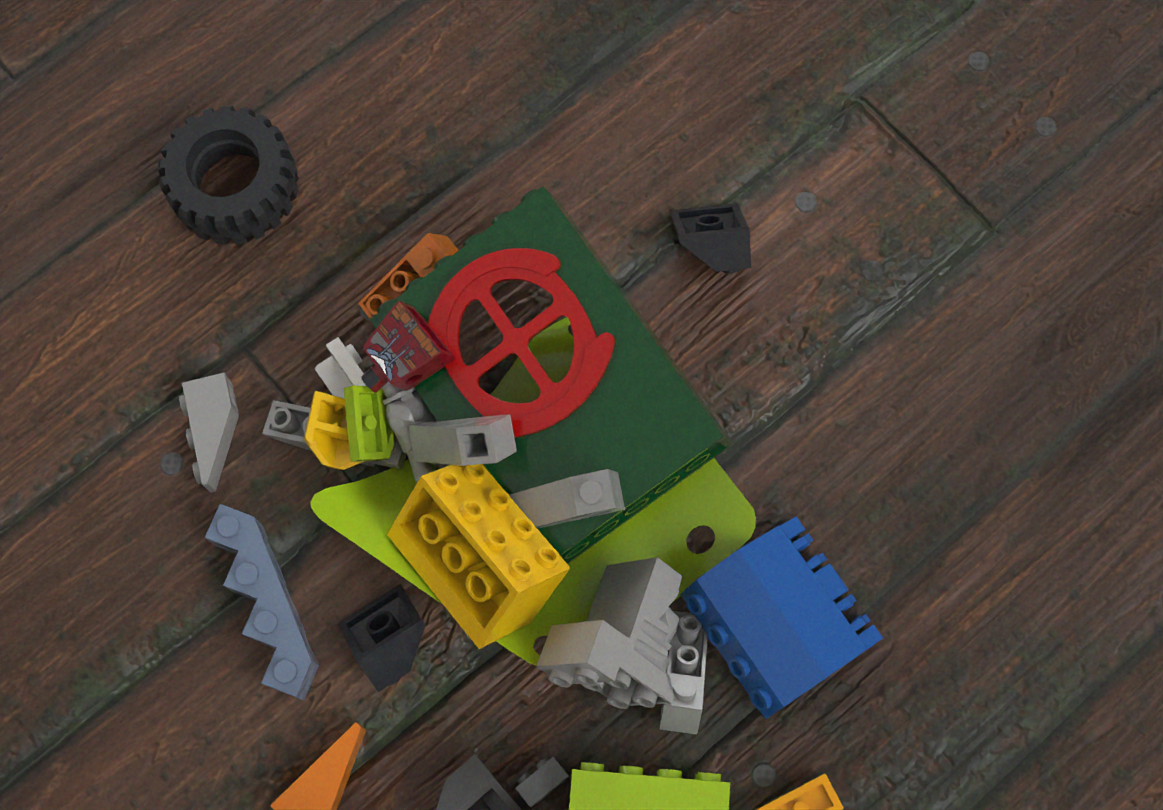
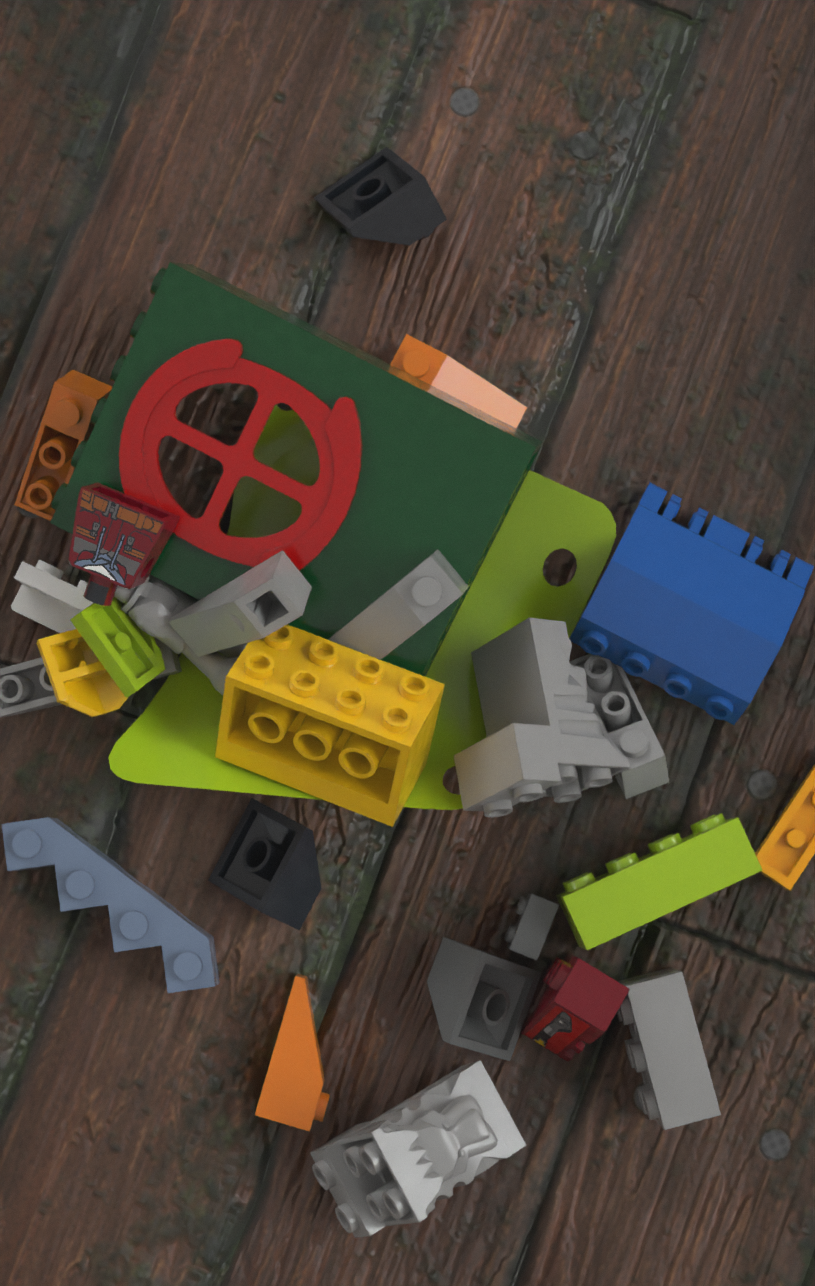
camera: 30 degrees left, 10 degrees up
(699, 375) = (456, 380): none -> slope

